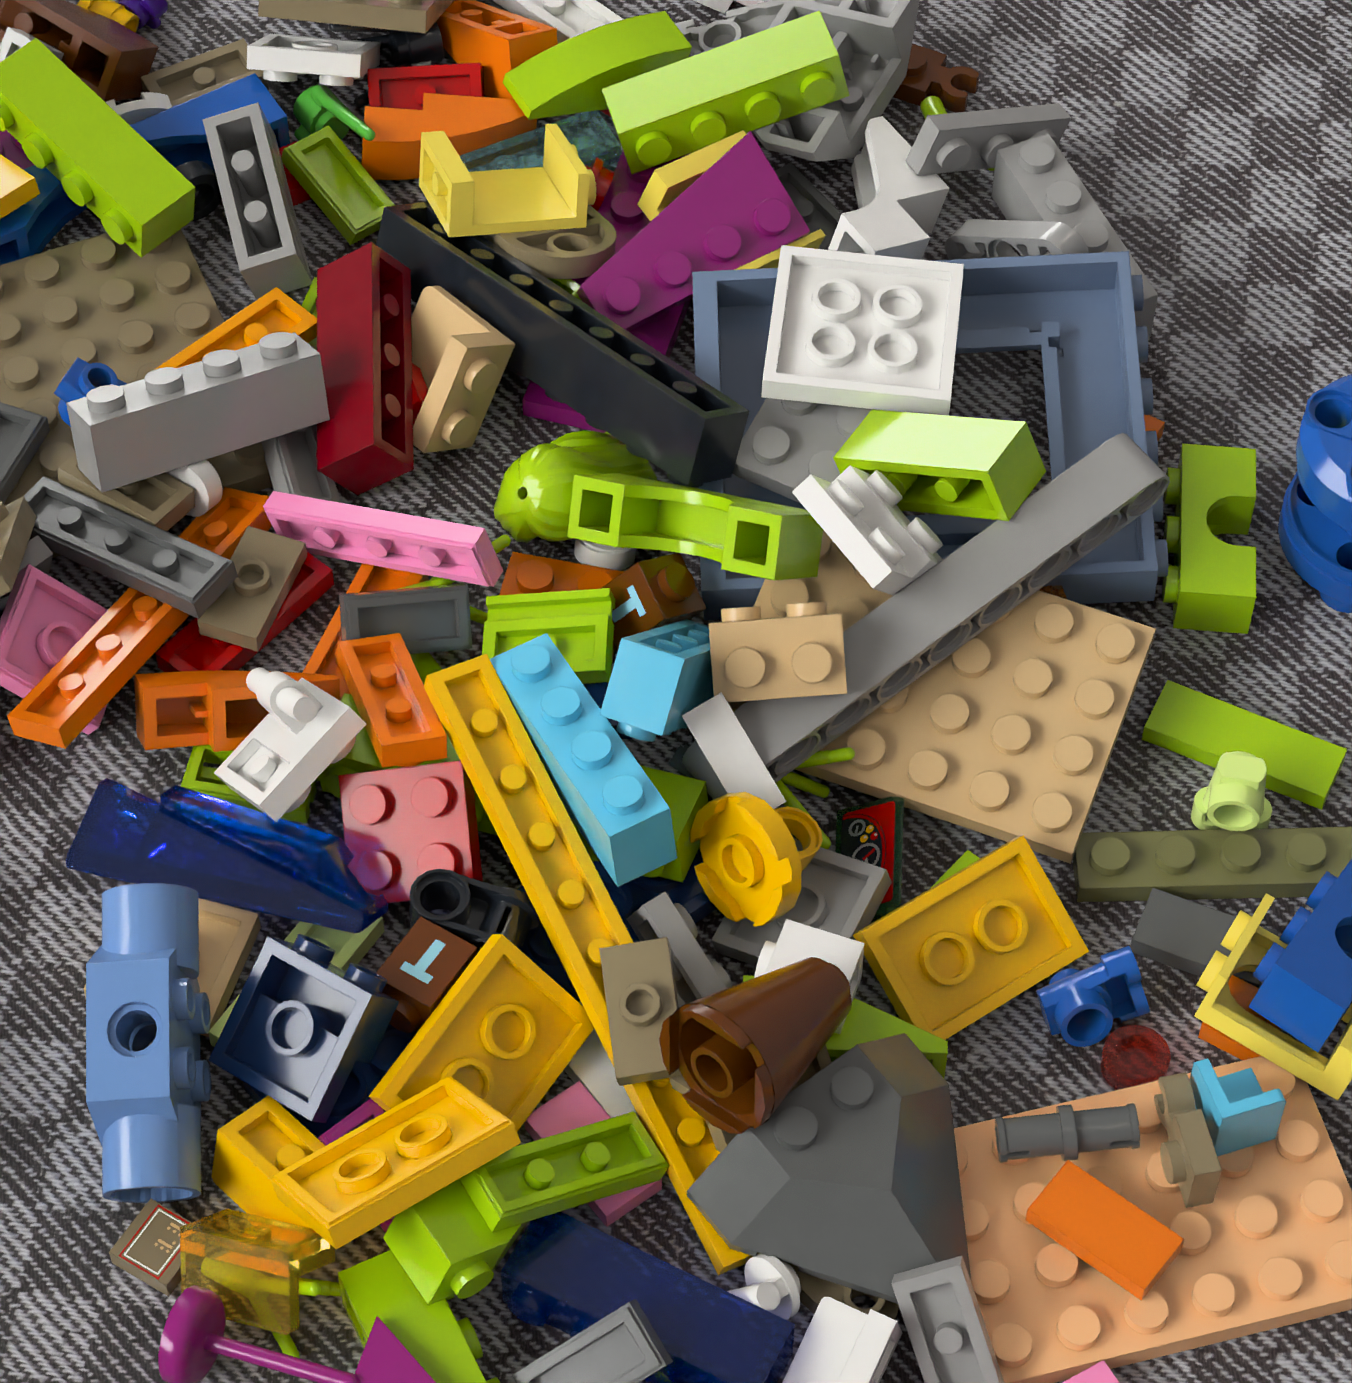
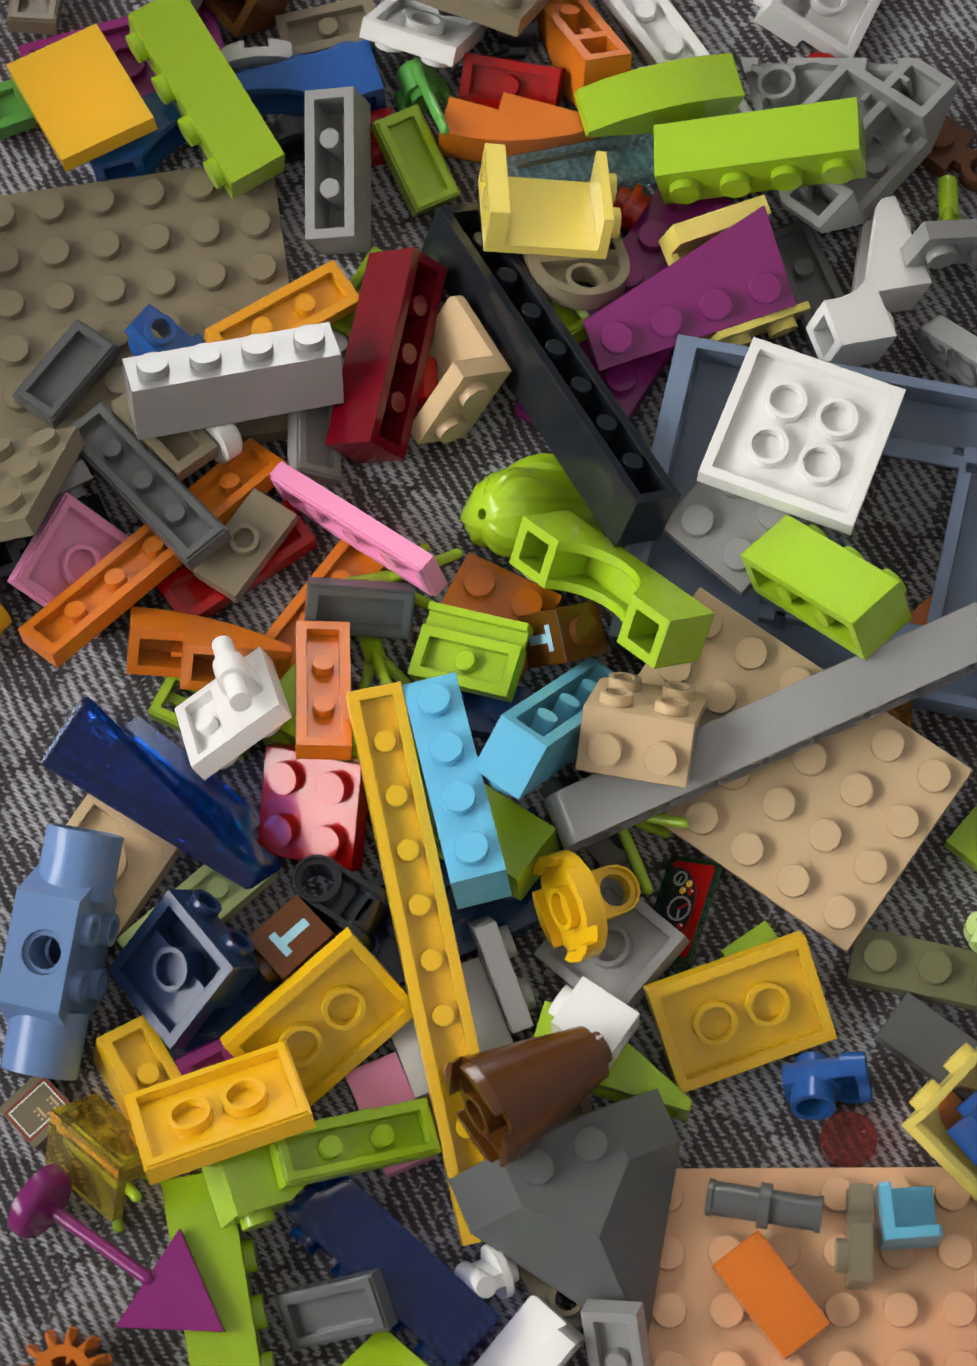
camera: 20 degrees right, 15 degrees up
(638, 1000) = (447, 1019): dark tan plate -> none
(731, 751) = (580, 817): white sticker -> none
(870, 529) = (747, 641): white plate -> none

